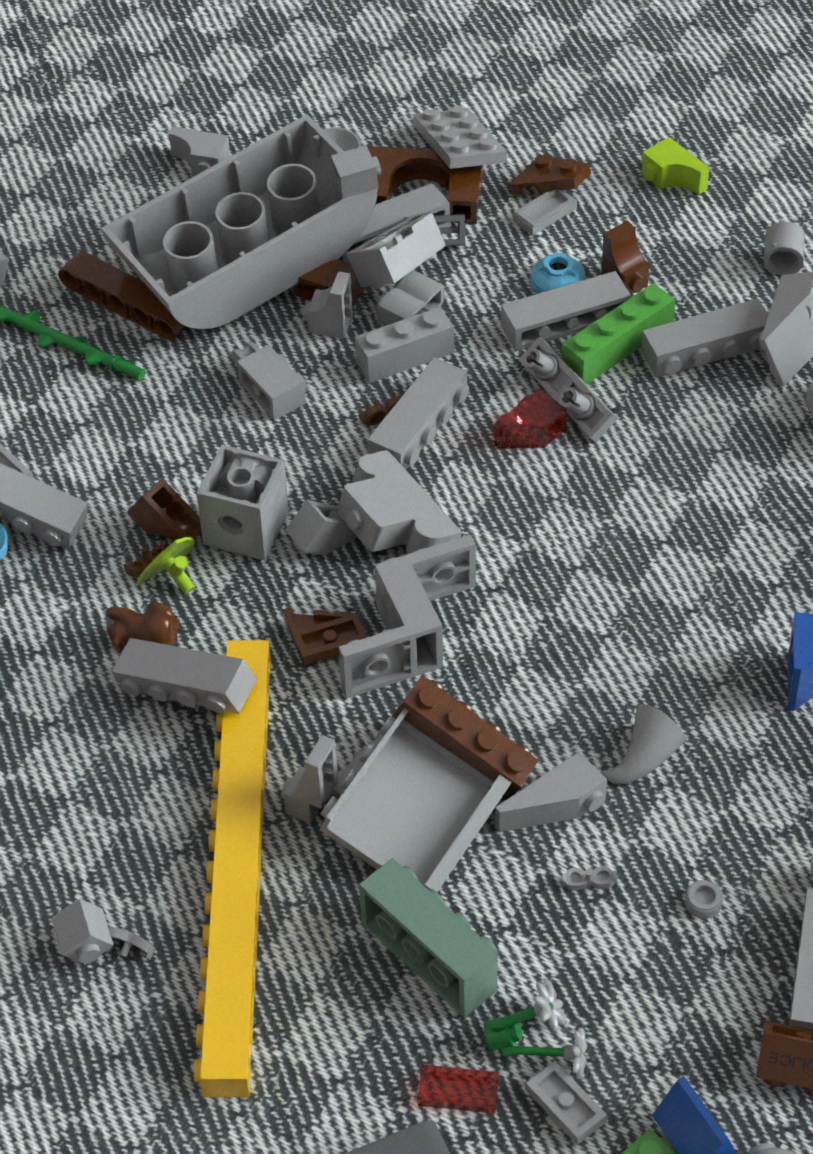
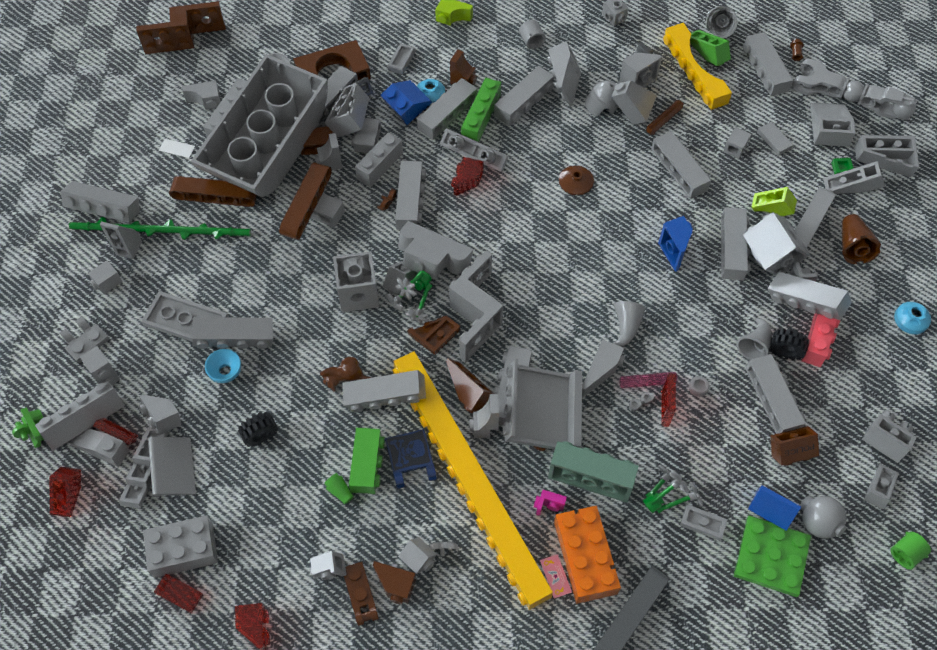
camera: 30 degrees left, 10 degrees up
(27, 956) = (395, 581): none -> reddish brown slope
(32, 786) = (337, 486): none -> bright green cone
(96, 767) = (366, 461): none -> bright green brick
(107, 209) = (176, 148): none -> white sticker
(137, 567) = (320, 331): reddish brown piece -> none
(165, 513) = (314, 304): reddish brown arch -> none
(171, 789) = (410, 453): none -> flag
(174, 562) = (339, 333): lime shield -> none
(227, 42) = (180, 31): none -> reddish brown bracket
(244, 356) = (305, 201): none -> reddish brown beam
(277, 1069) = (555, 576): none -> bright pink sticker
(320, 716) = (468, 387): none -> reddish brown slope
(338, 952) = (552, 500): none -> dark pink bracket
(339, 1054) = (586, 554): none -> orange piece
(346, 544) = (421, 281): none -> light grey plant
(355, 171) = (314, 76): light grey brick -> none
(458, 1089) = (648, 541): clear red tile -> none
(459, 137) = (338, 36): light grey plate -> none
(466, 734) = (545, 356): reddish brown brick -> none
(504, 271) = (405, 100): none -> blue slope
(551, 174) = (394, 38): reddish brown wing -> none
(623, 851) = (644, 380): none -> clear pink axle
(626, 888) = (668, 400): none -> clear red tile
(712, 502) = (576, 180): none -> reddish brown dish

